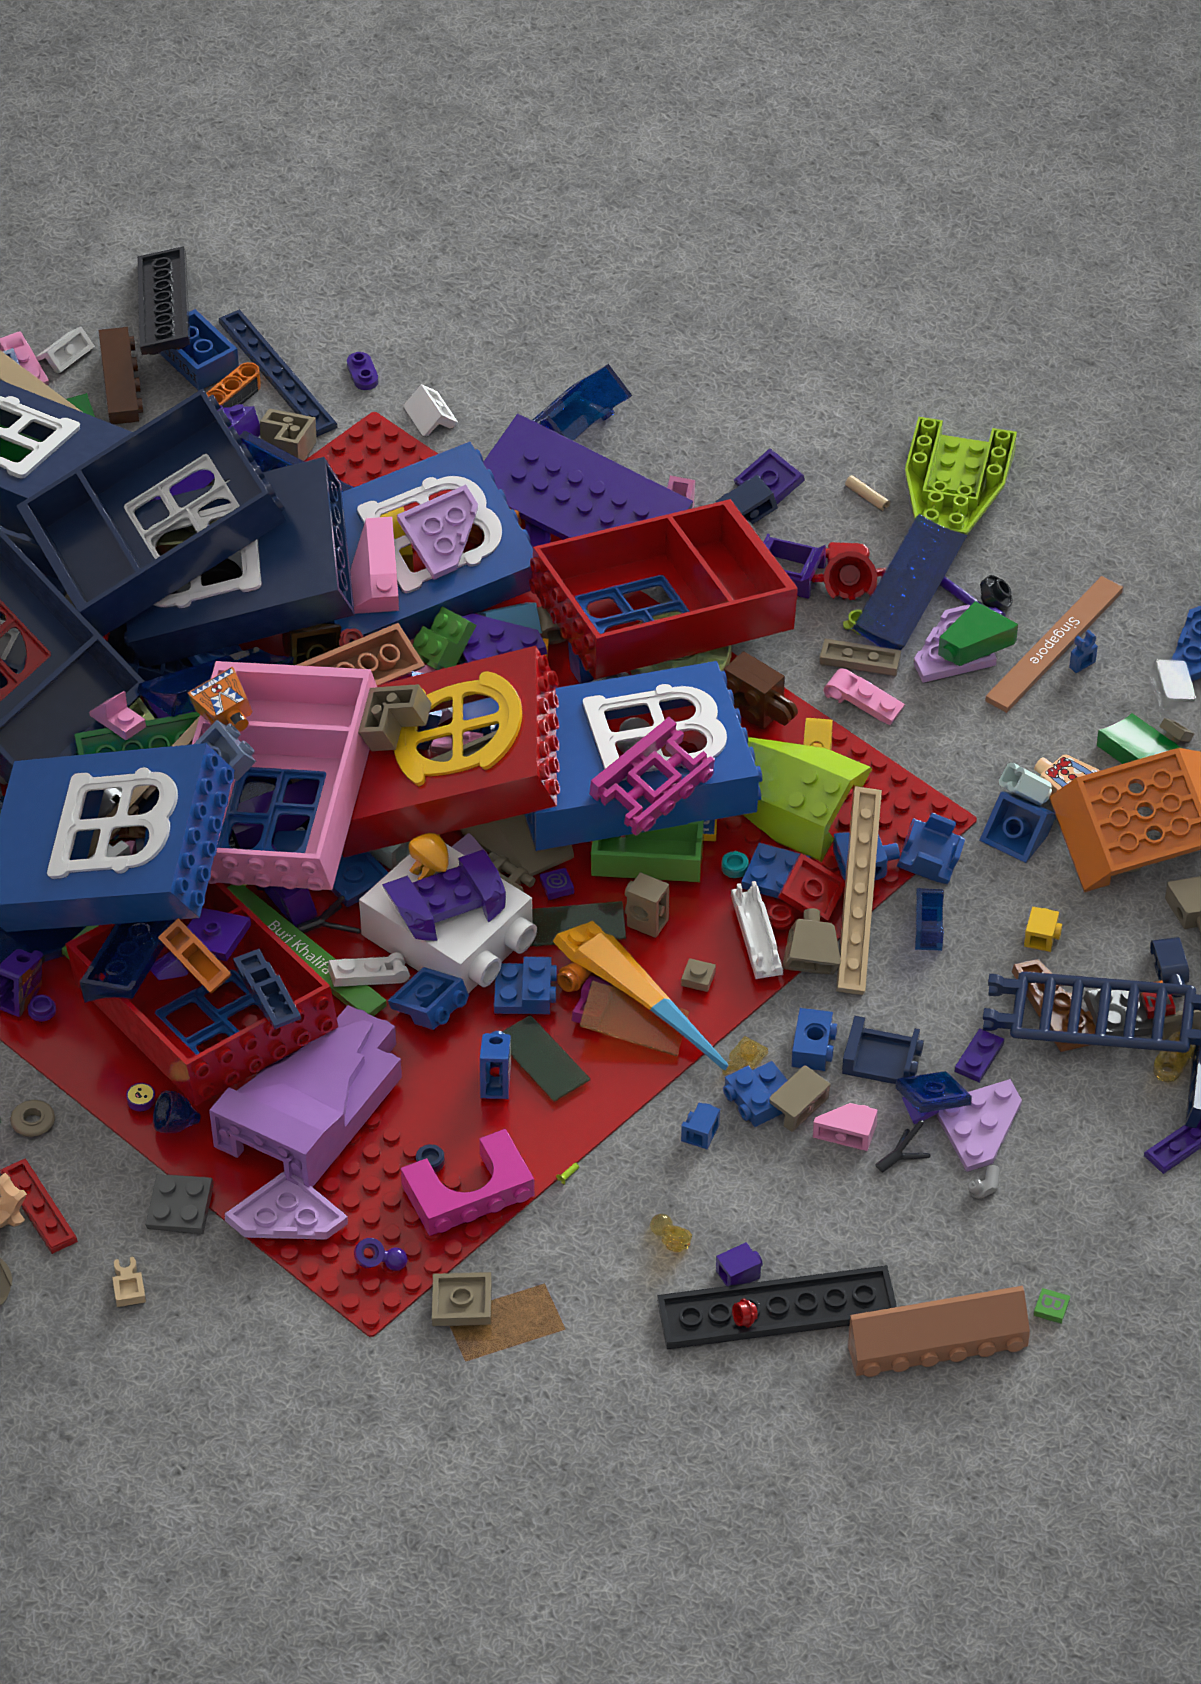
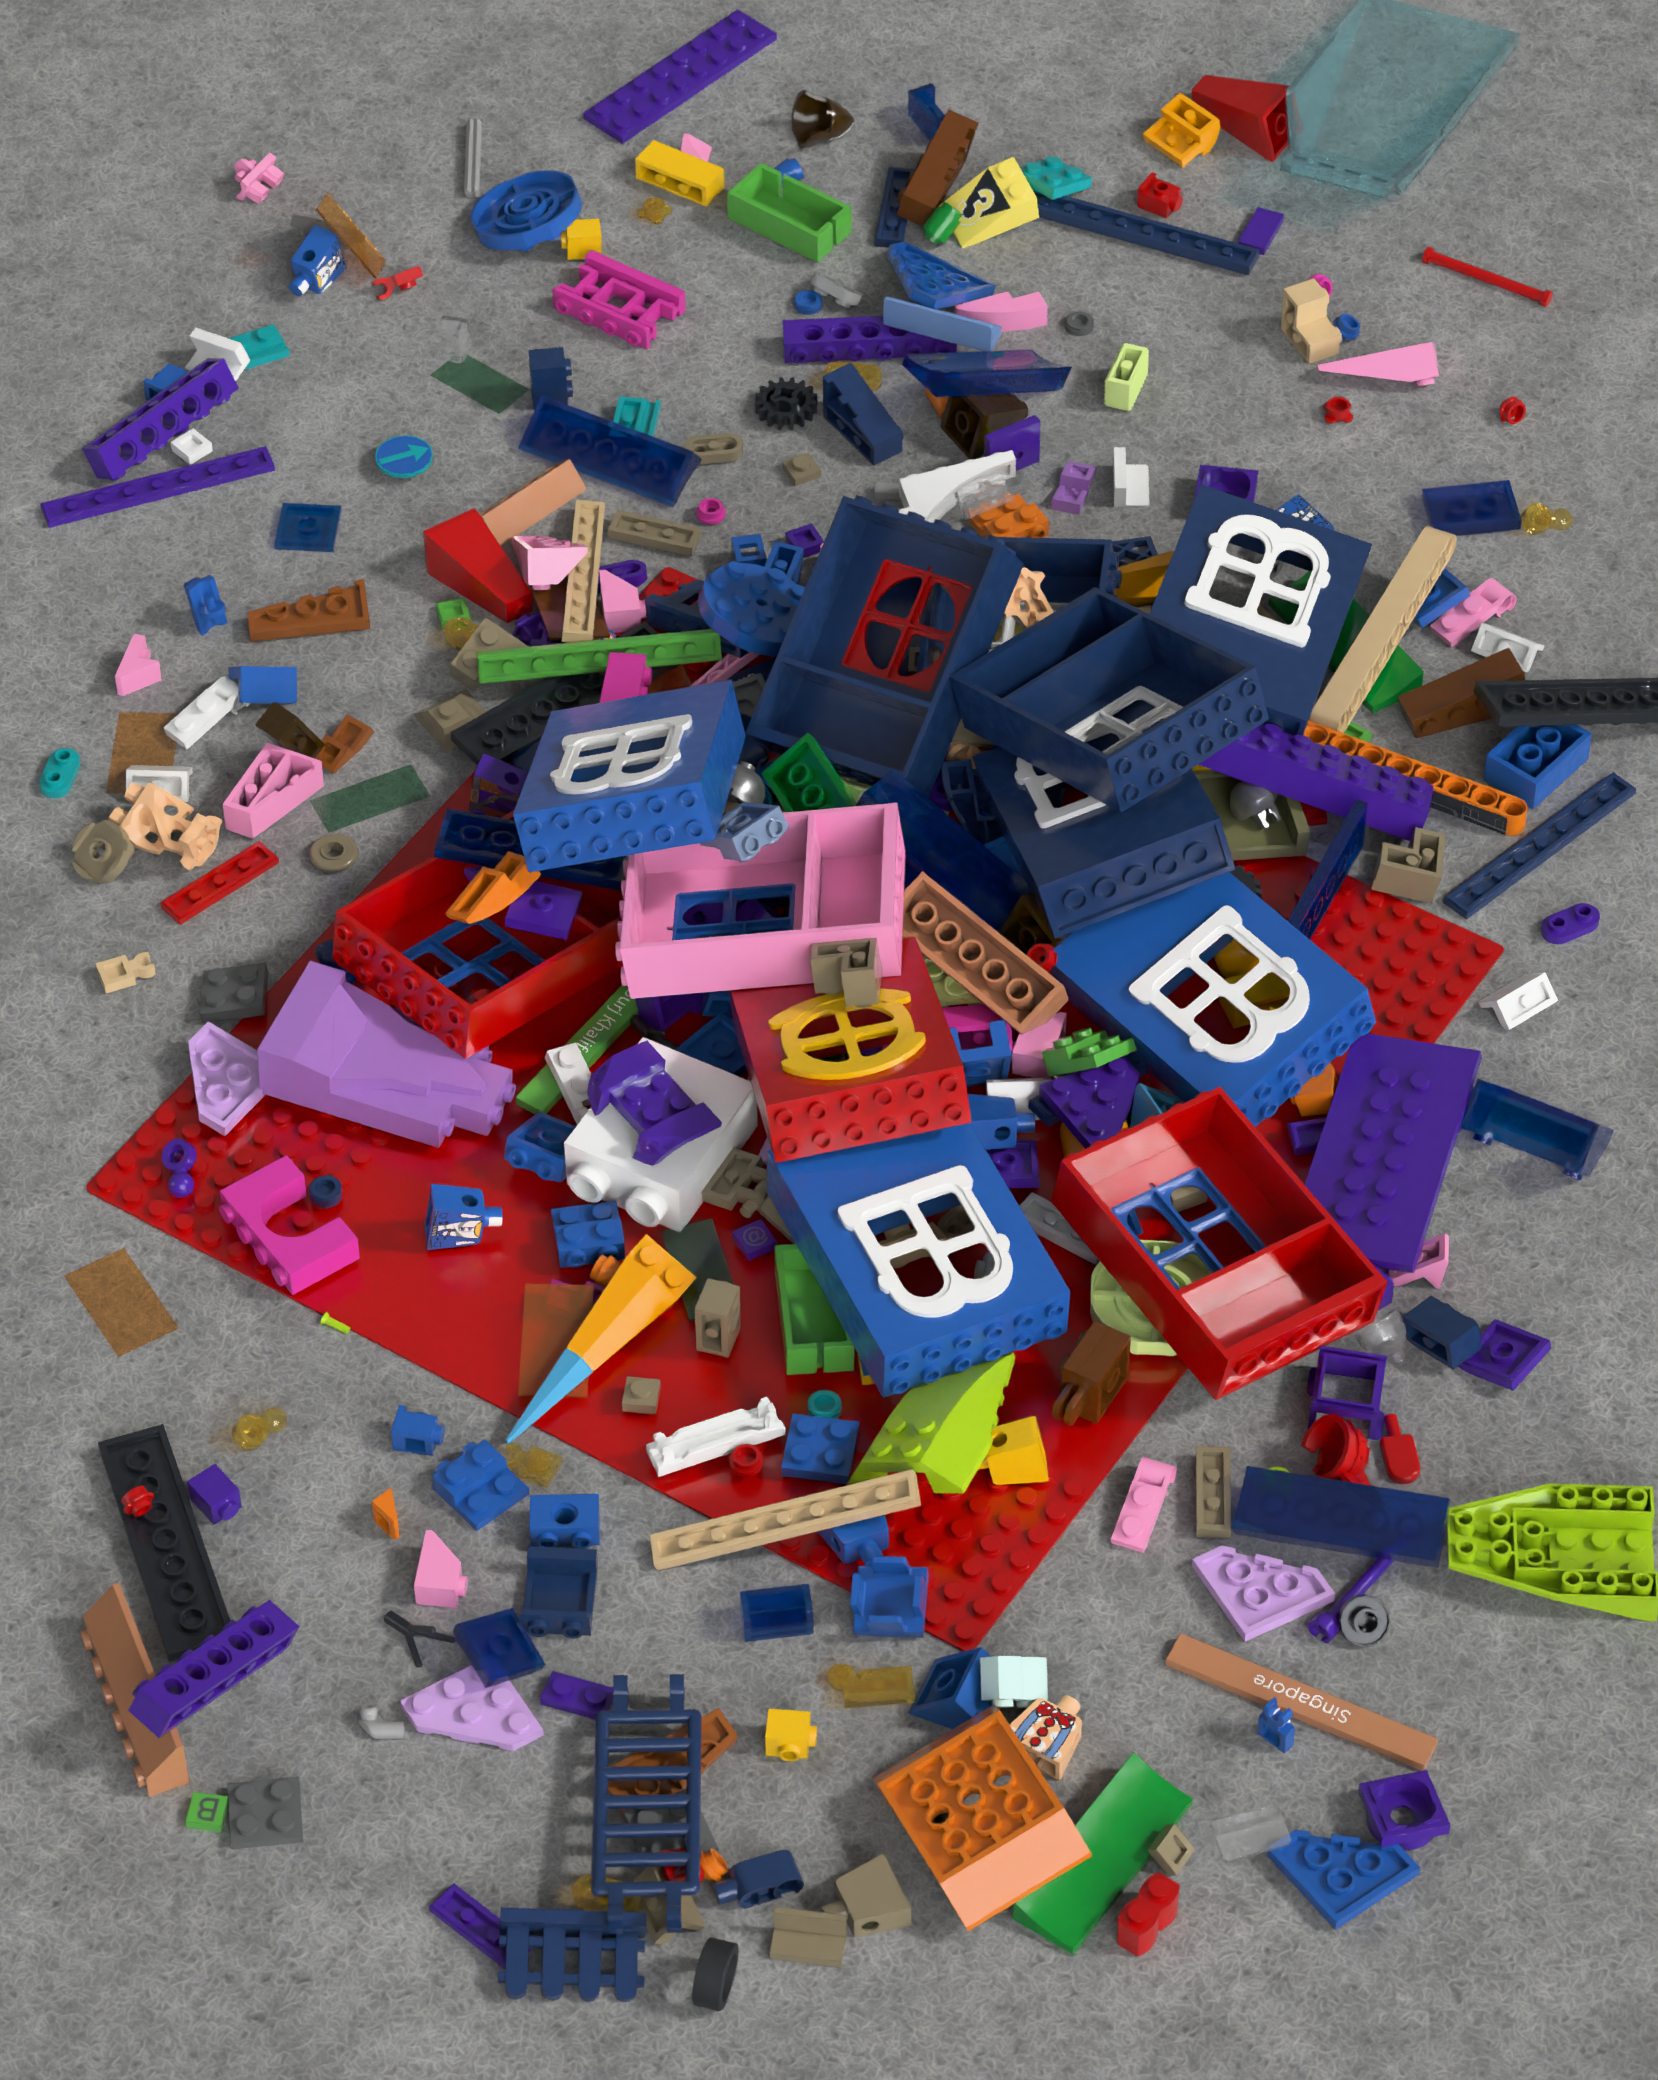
camera: 80 degrees right, 0 degrees up
(118, 717) = (836, 761): bright pink slope -> none
(222, 700) = (825, 815): orange torso -> none
(266, 989) = (449, 956): dark blue slope -> none
(375, 568) = (1136, 950): bright pink wedge -> none
(430, 855) = (704, 1076): light orange piece -> none
(441, 529) = (1217, 991): lavender plate -> none
(461, 1299) = (137, 1252): dark tan plate -> none
(544, 1059) = (491, 1270): clear green piece -> none
(637, 762) = (849, 1220): dark pink fence -> none
(782, 1151) = (385, 1513): none -> orange slope
(800, 1096) = (468, 1517): dark tan panel -> none
(812, 887) = (785, 1473): red plate -> none
(812, 945) = (702, 1491): dark tan torso -> none
(867, 493) = (1518, 1464): tan piece -> none
(944, 1262) = (212, 1668): none -> dark purple brick
(976, 635) = (1264, 1596): green slope -> none
(1002, 876) = (873, 1686): none -> clear yellow hinge
(1058, 1267) = (265, 1812): none -> dark grey plate
(1163, 589) = (1407, 1791): none -> dark purple piece

